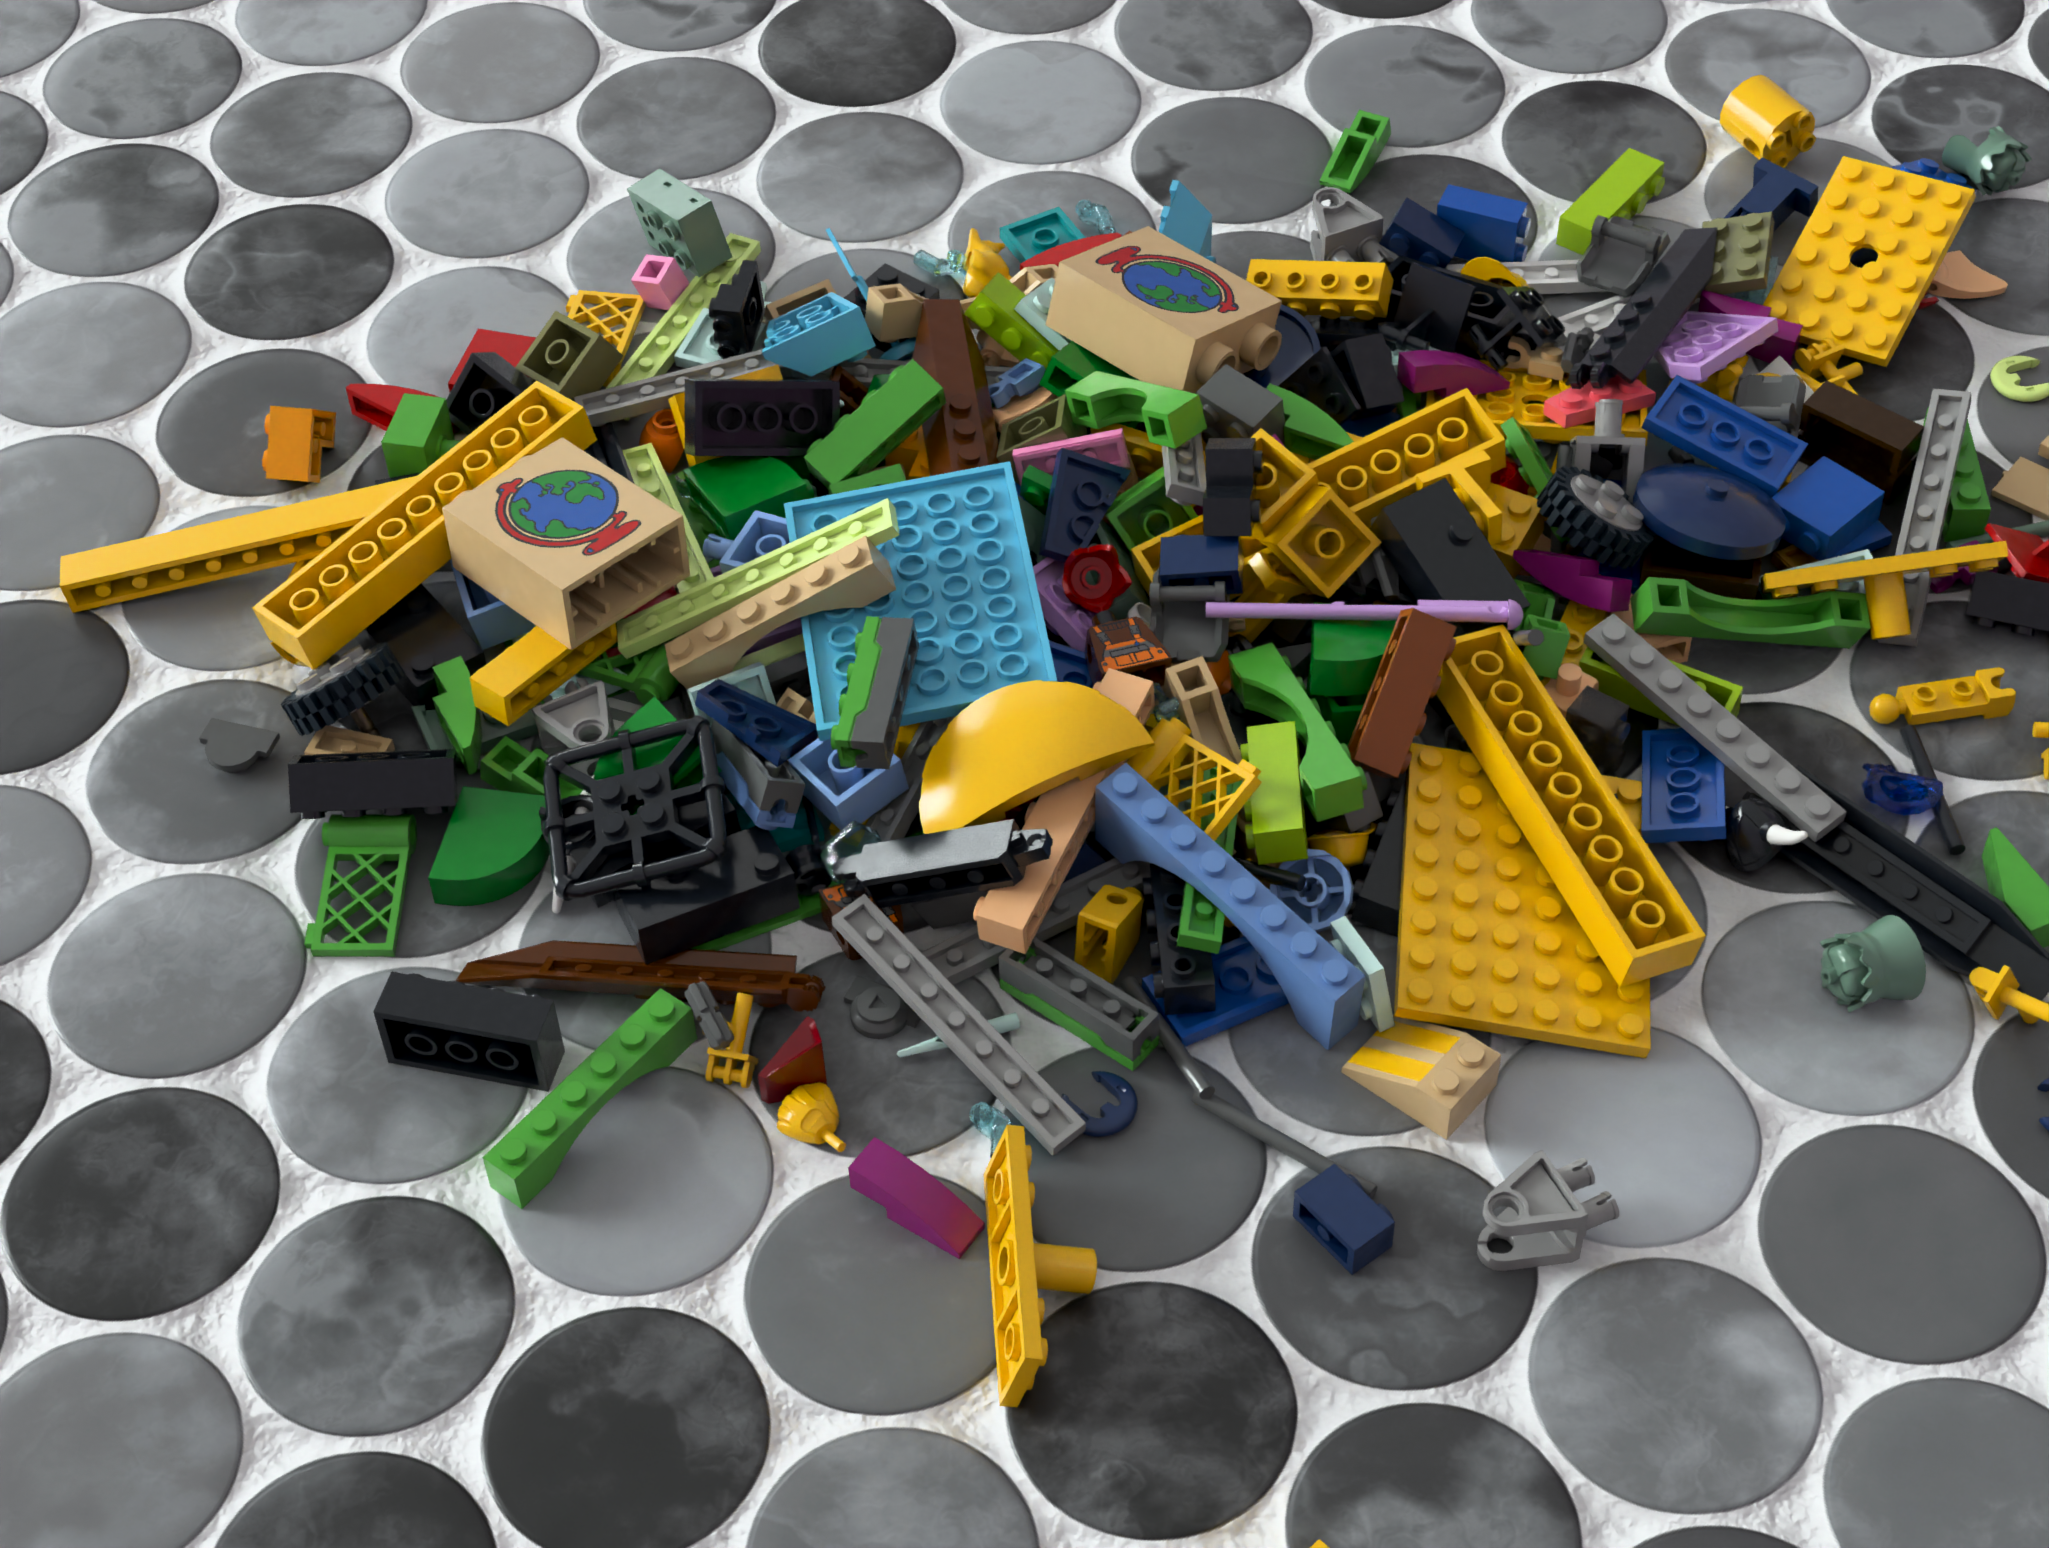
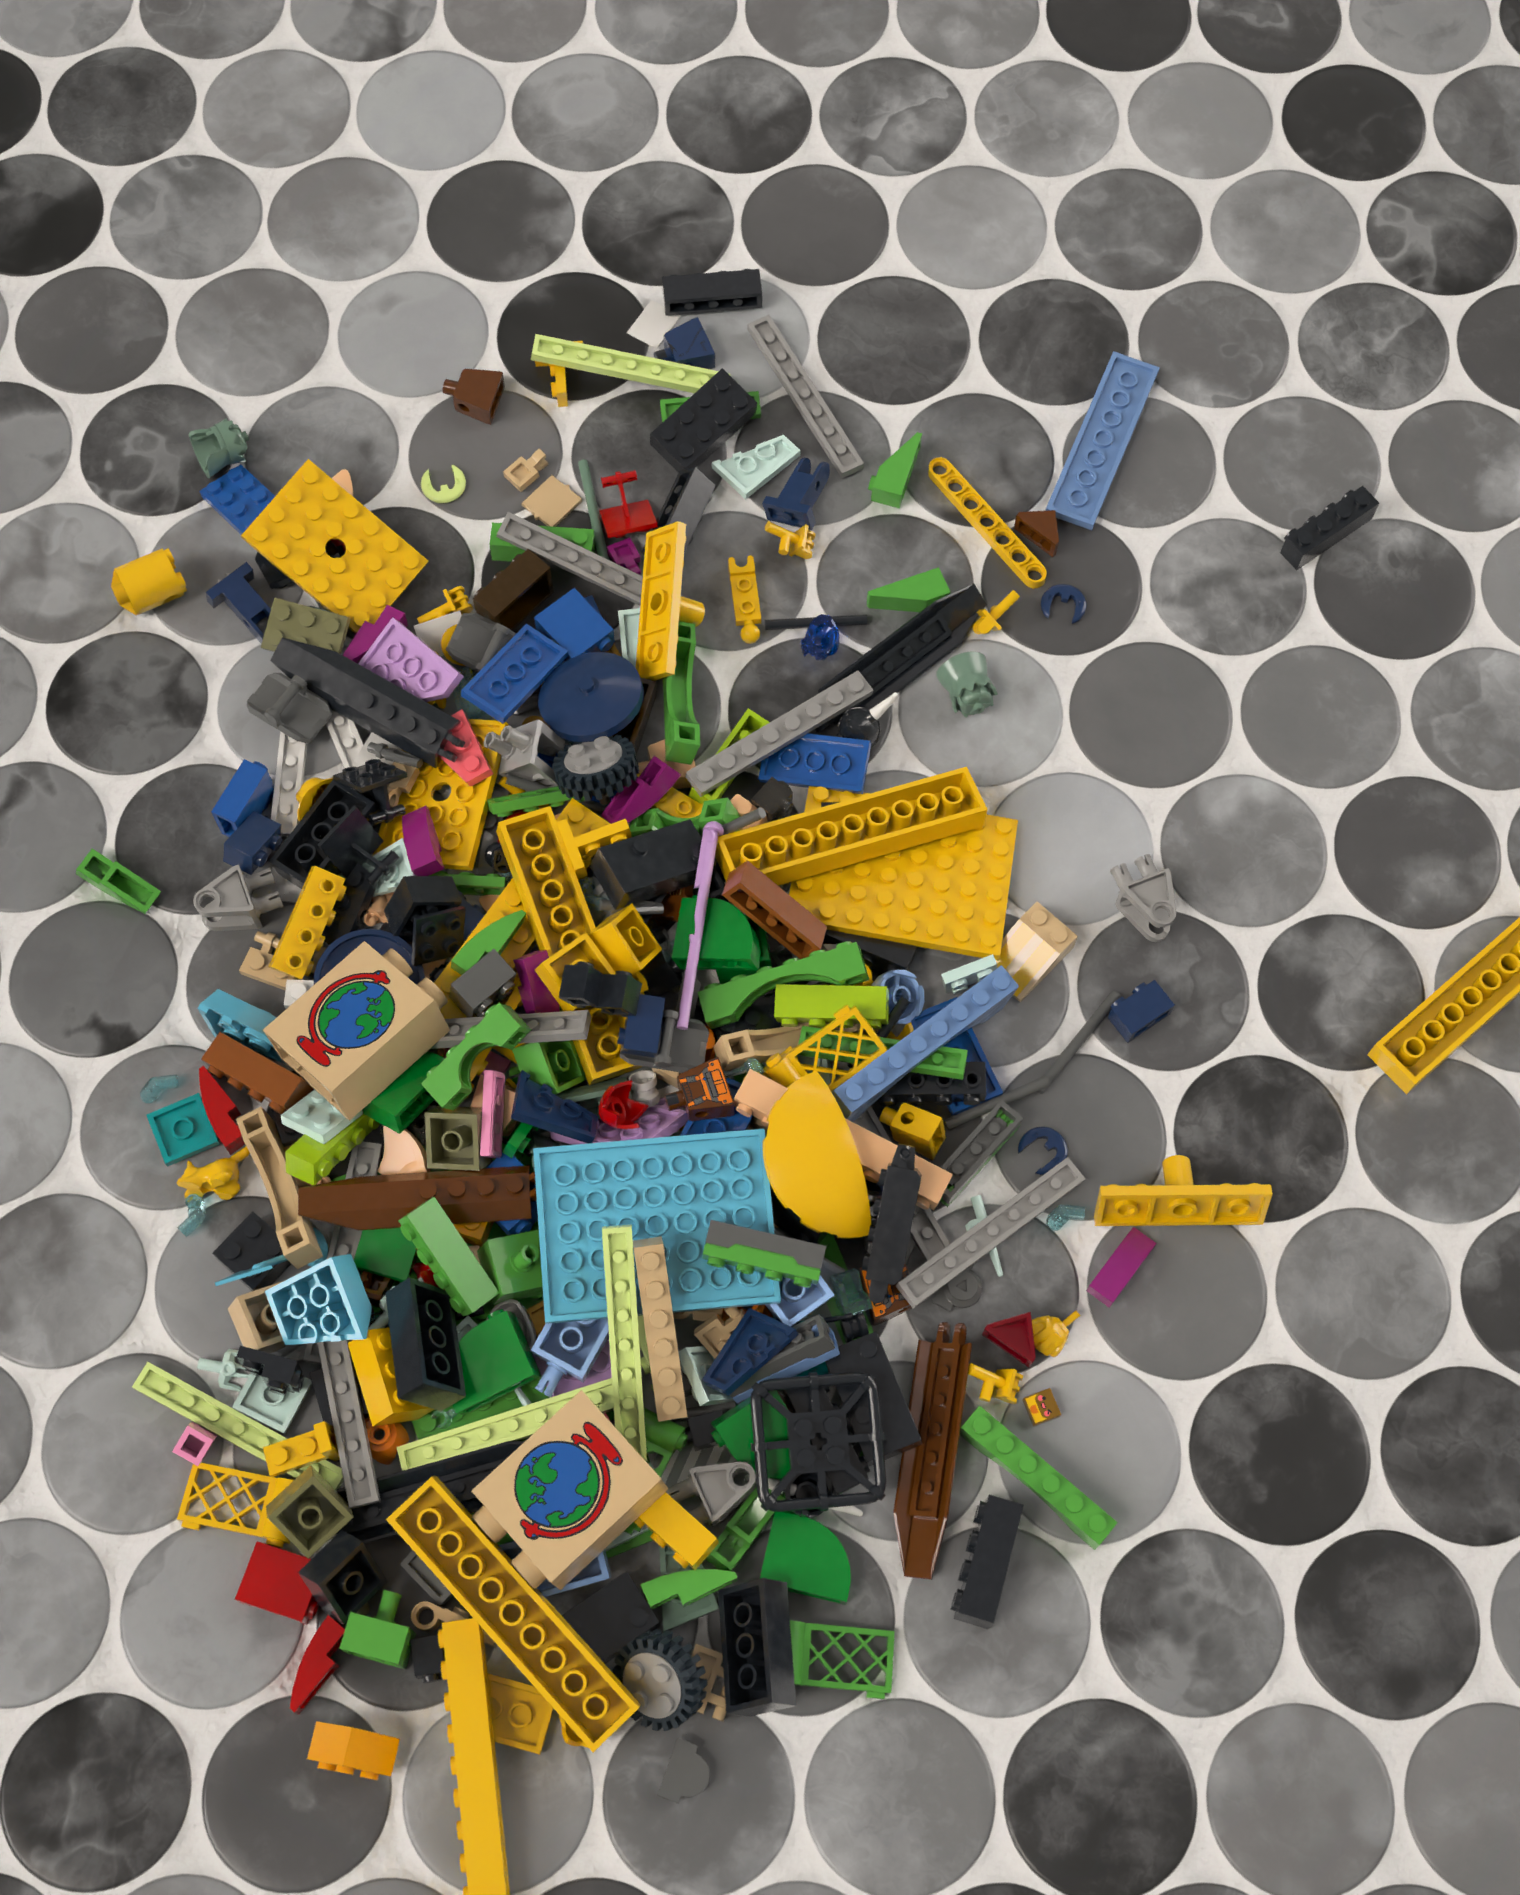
camera: 90 degrees left, 20 degrees up
(647, 358) = (302, 1450): none -> yellow bracket
(679, 222) = (133, 1424): sand green piece -> none
(700, 1110) = (1041, 1407): none -> pearl gold tile
(713, 1022) = (993, 1390): dark grey piece -> none
(1018, 380) = (377, 1152): medium blue plate -> none
(1617, 192) = (214, 707): lime brick -> none
(1823, 359) = (415, 602): yellow arm -> none

